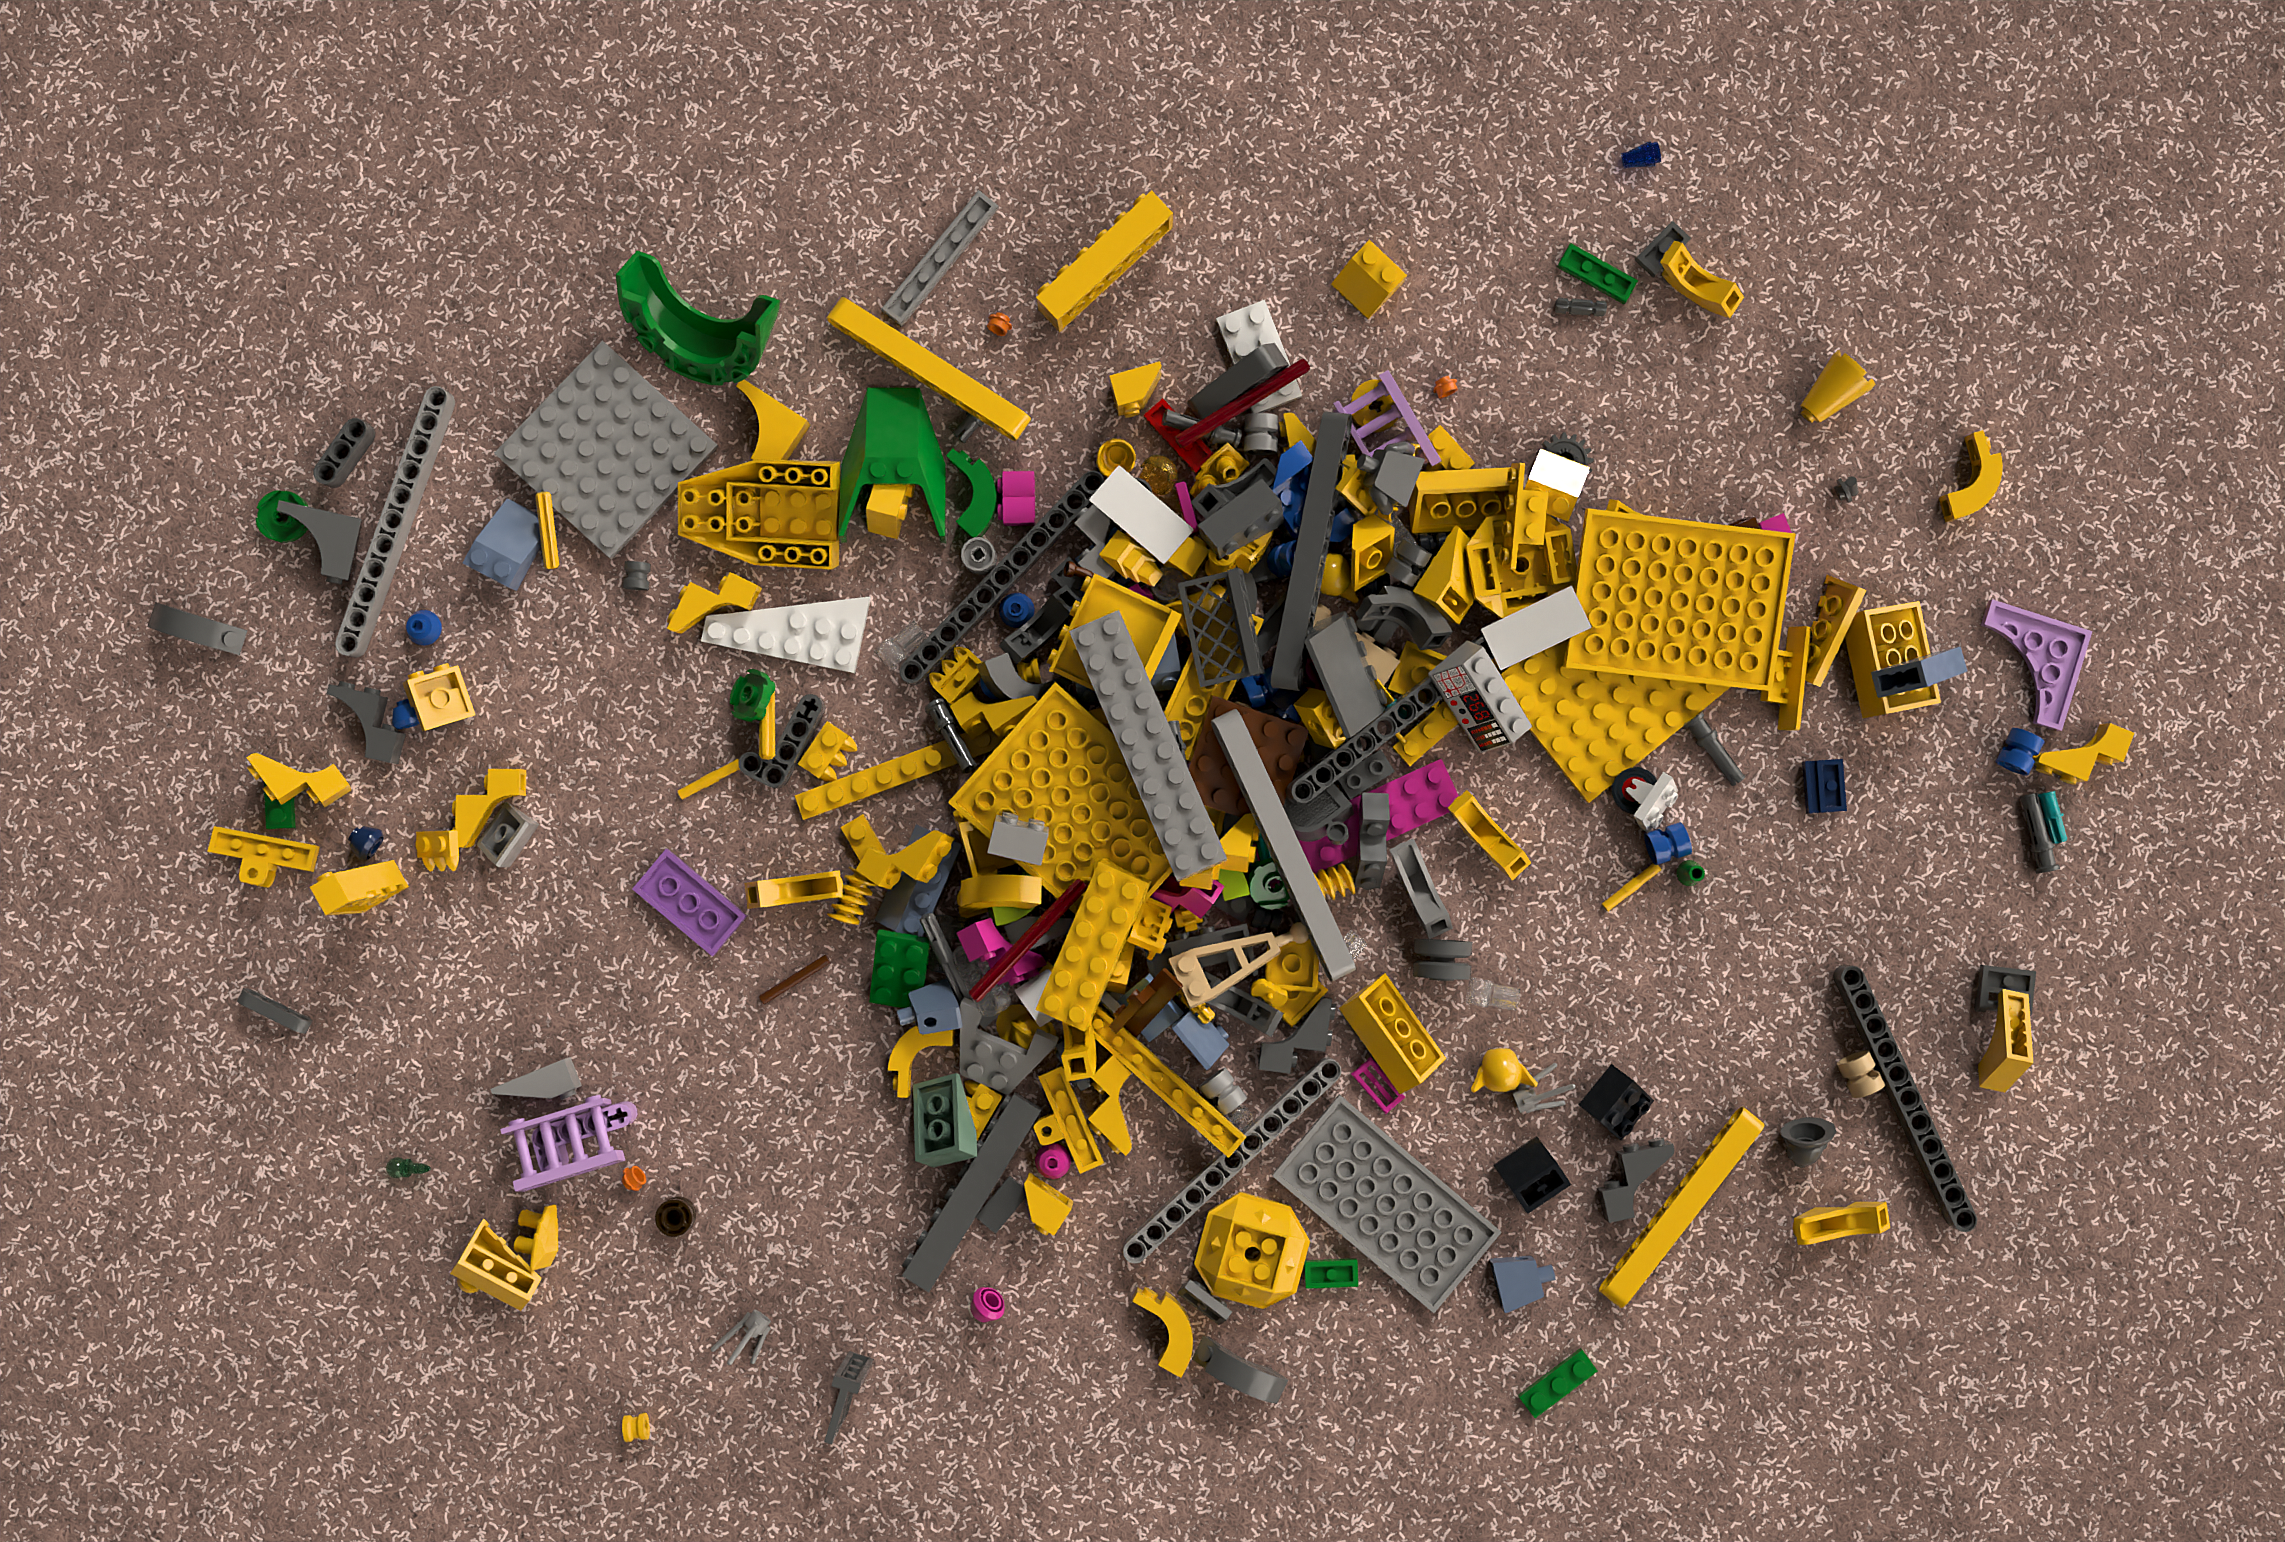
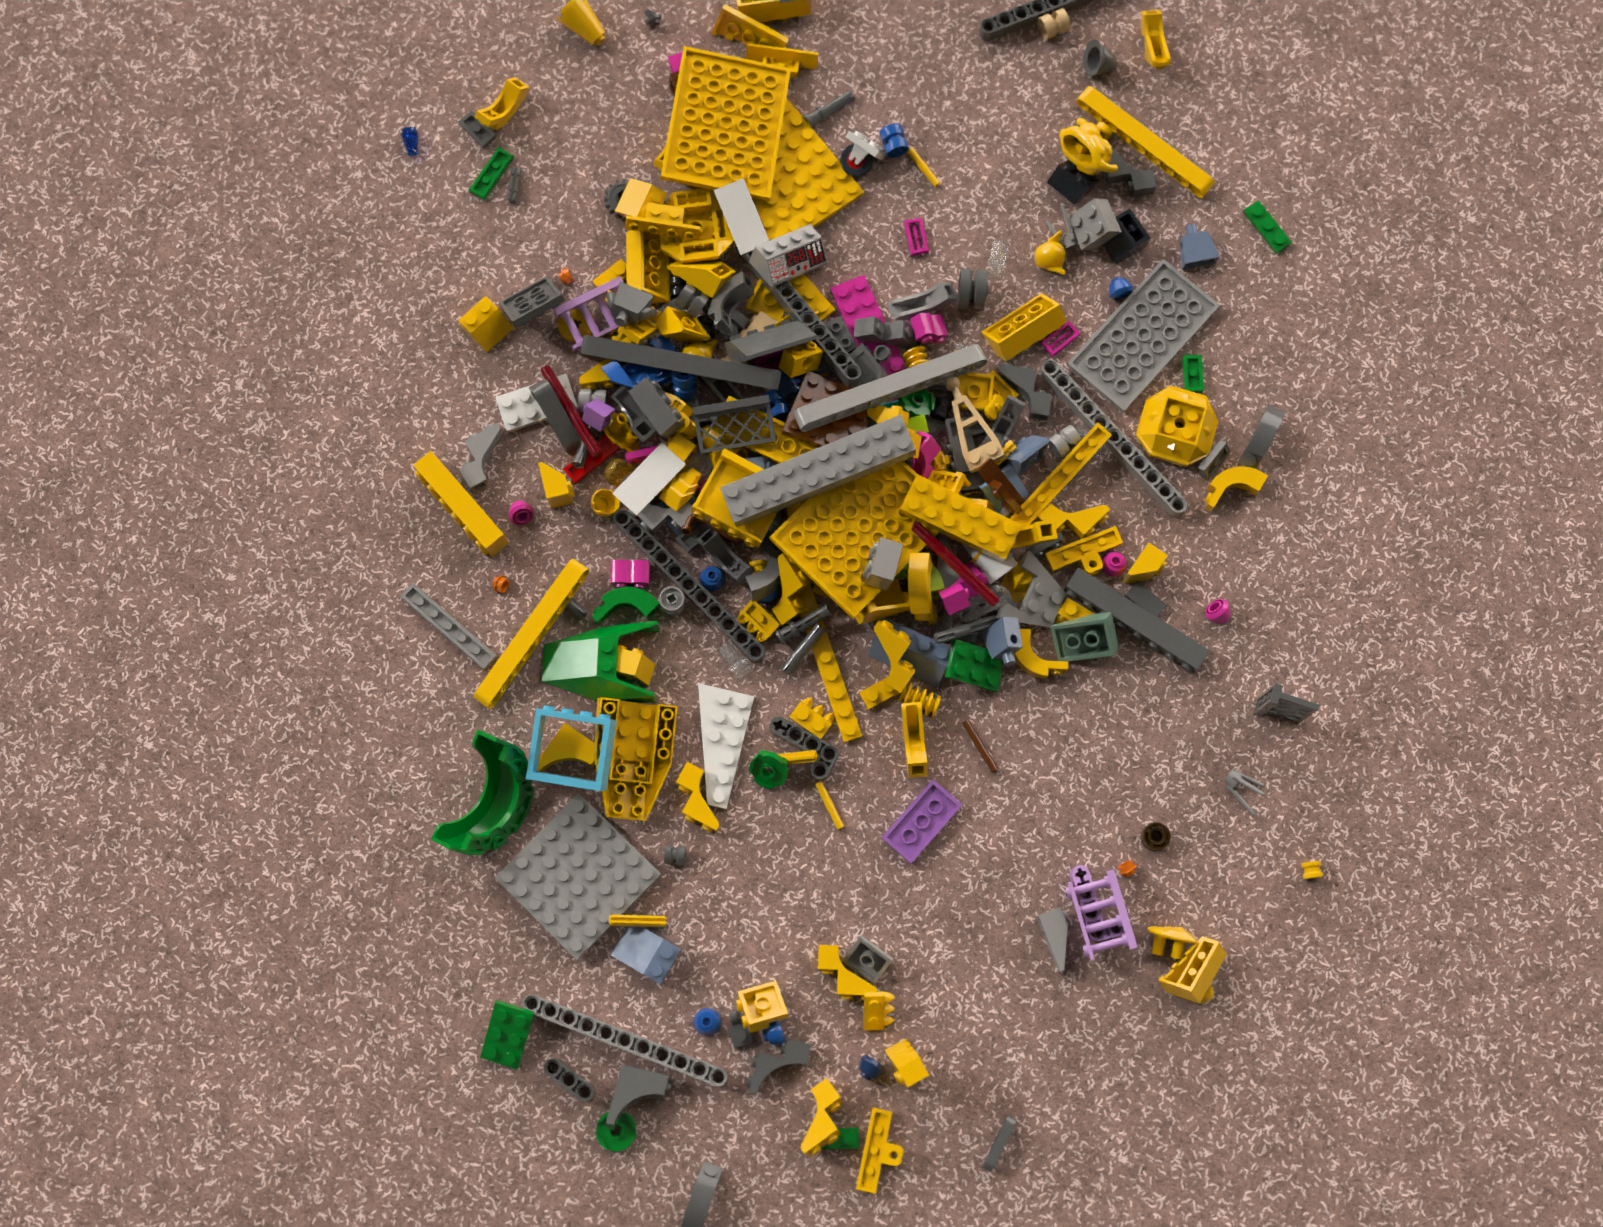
camera: 90 degrees left, 10 degrees down
(398, 369) = (507, 1034): none -> green plate
(400, 1167) = (1119, 1049): clear green bar -> none
(411, 665) = (737, 1033): none -> dark grey plate
(722, 419) = (605, 752): none -> medium azure window
(910, 730) = (798, 655): none -> dark grey pin
(1098, 344) = (520, 513): none -> dark pink cone
(1187, 283) = (480, 447): none -> light grey arch
(1235, 439) = (597, 414): none -> medium lavender brick
(1381, 899) = (929, 328): none -> dark pink brick
(1400, 339) = (531, 301): none -> dark grey plate
(1454, 1170) = (1120, 288): none -> blue cone
(1488, 835) = (880, 262): yellow arch -> none
(1502, 883) = (919, 251): none -> dark pink tile
(1546, 1133) = (1094, 224): none -> light grey brick
(1660, 1122) = (1087, 148): none -> yellow piece
(1684, 873) = (914, 127): green cone -> none
(1697, 1146) = (1105, 130): none -> yellow tile
(1824, 786) = (856, 40): dark blue plate -> none

